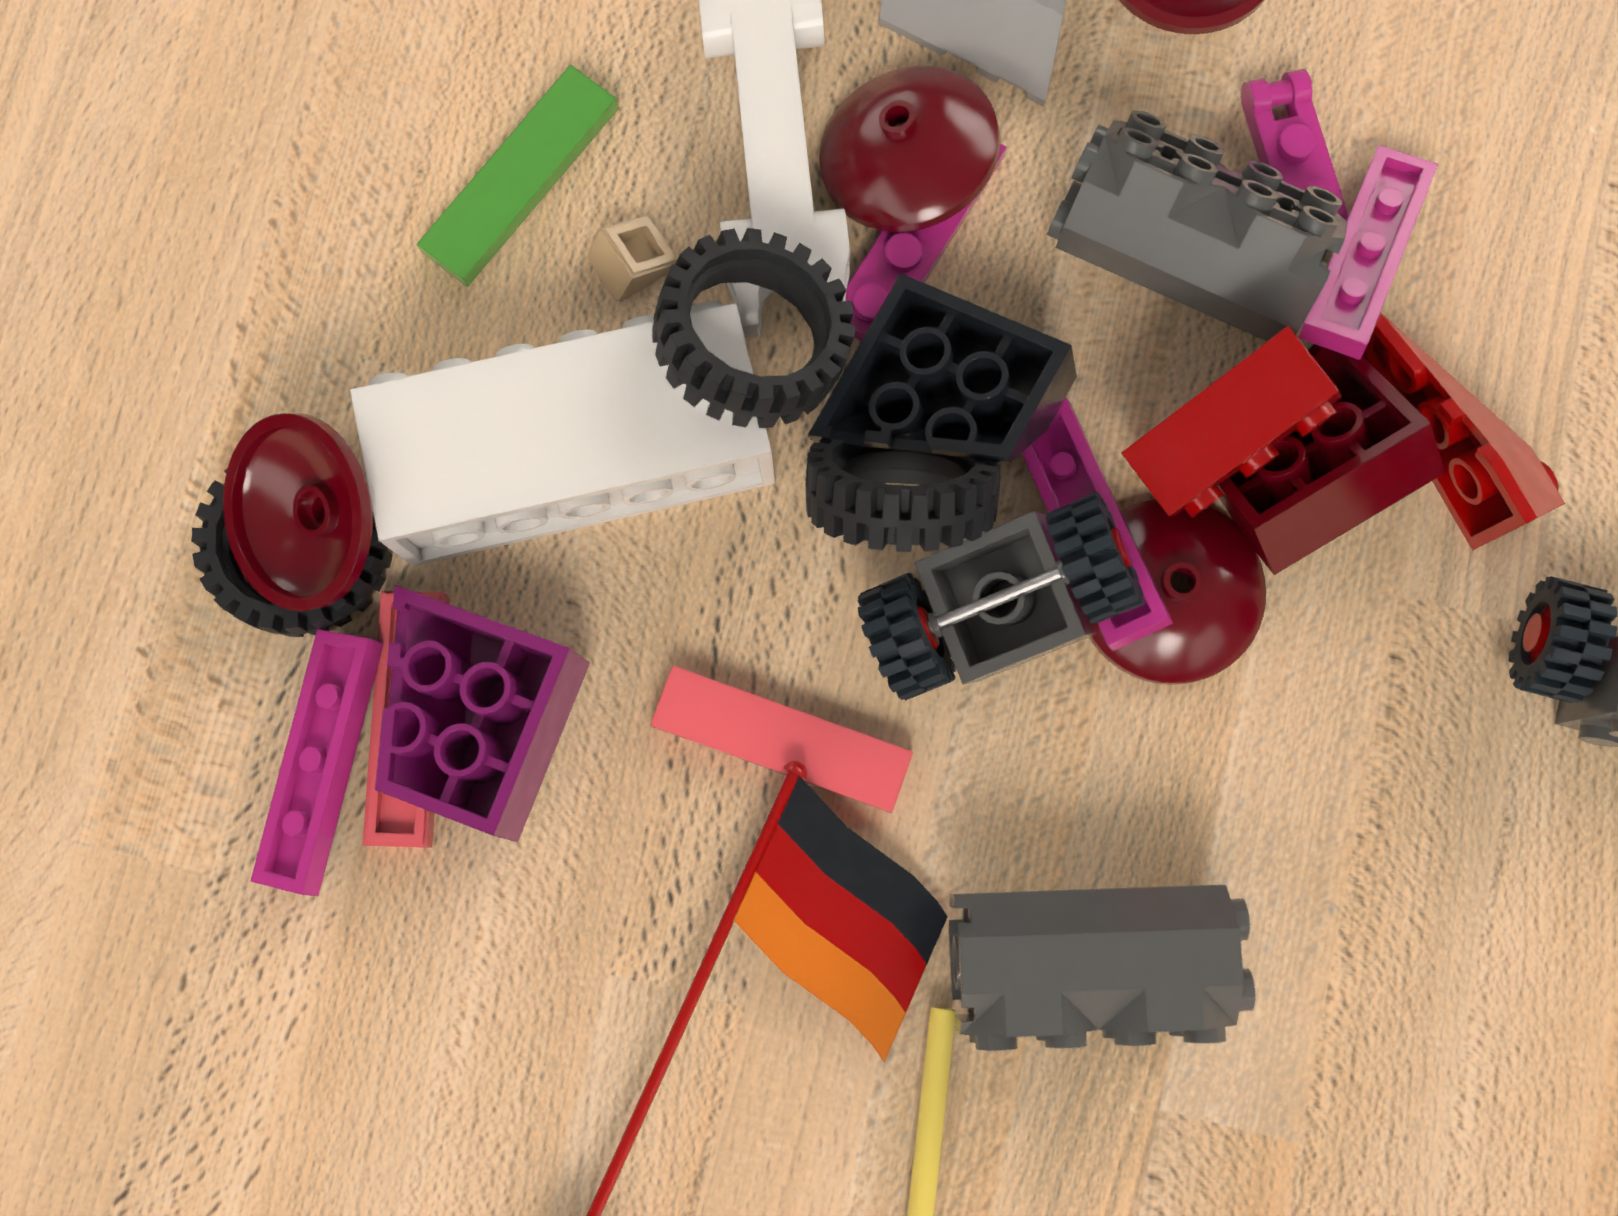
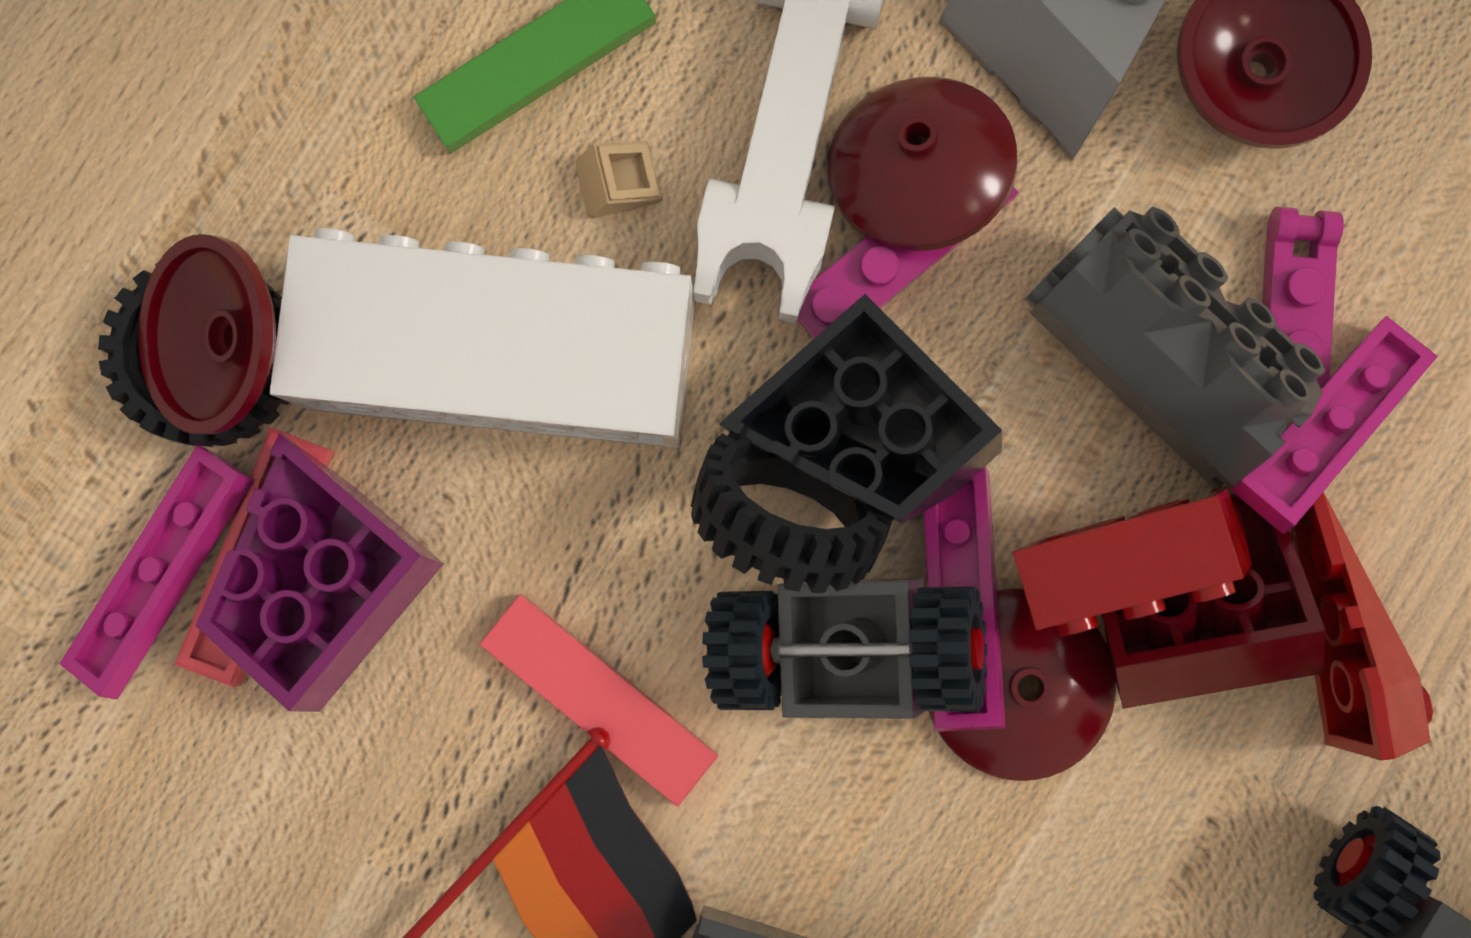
camera: 20 degrees right, 5 degrees up
(771, 268) = (735, 248): black tyre -> none

